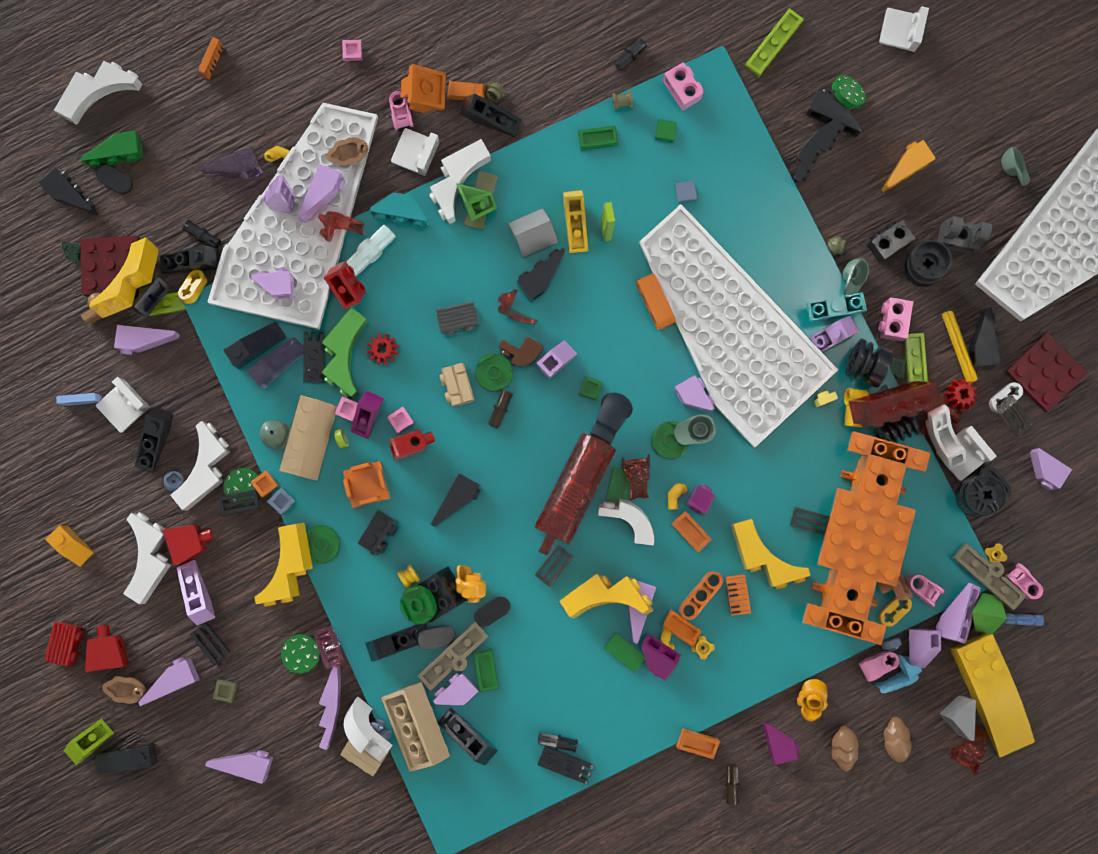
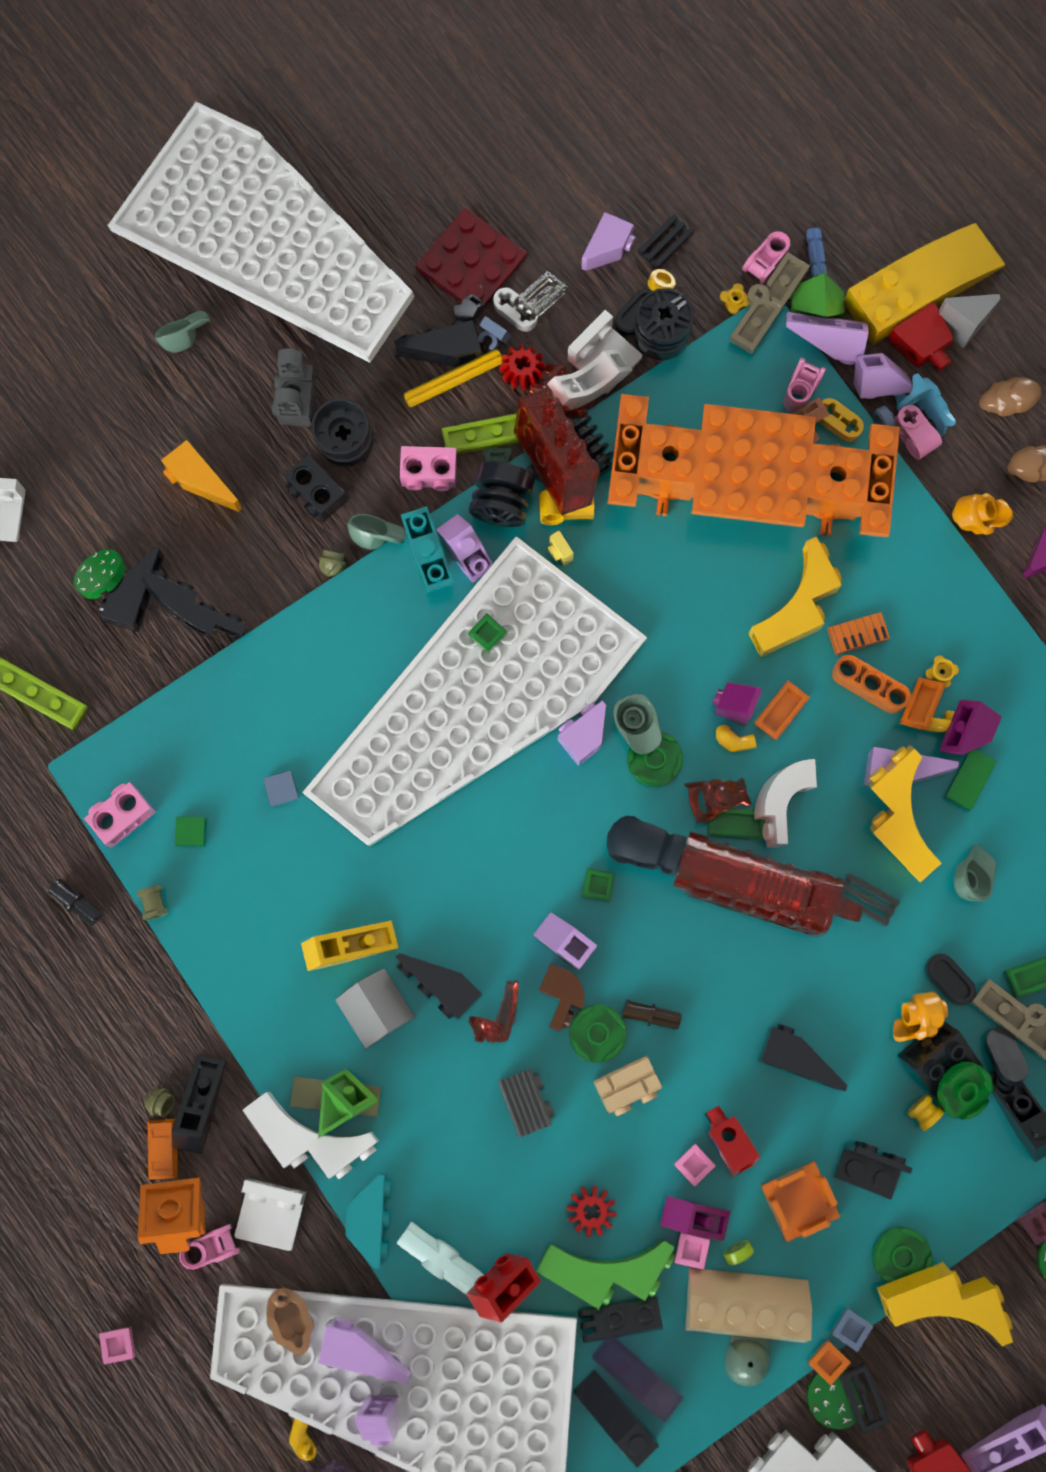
camera: 95 degrees left, 5 degrees down
(277, 284) = (521, 1397): lavender slope -> none
(336, 220) = (403, 1316): clear red hair -> none
(559, 641) = (975, 875): none -> sand green cap
(598, 137) = (214, 932): green tile -> none
(607, 222) = (352, 892): lime tile -> none
(655, 301) = (454, 808): orange beam -> none
(772, 339) = (487, 633): none -> green tile
(814, 514) = (738, 524): clear smoke tile -> none
(949, 684) = (923, 338): none -> red torso
(972, 750) = (1012, 297): clear red hair -> none
(991, 378) = (495, 332): none -> sand blue tile
(1009, 363) = (468, 308): none -> black piece
(1014, 503) = (661, 279): none -> yellow tile
(1052, 509) = (679, 226): none -> black tile

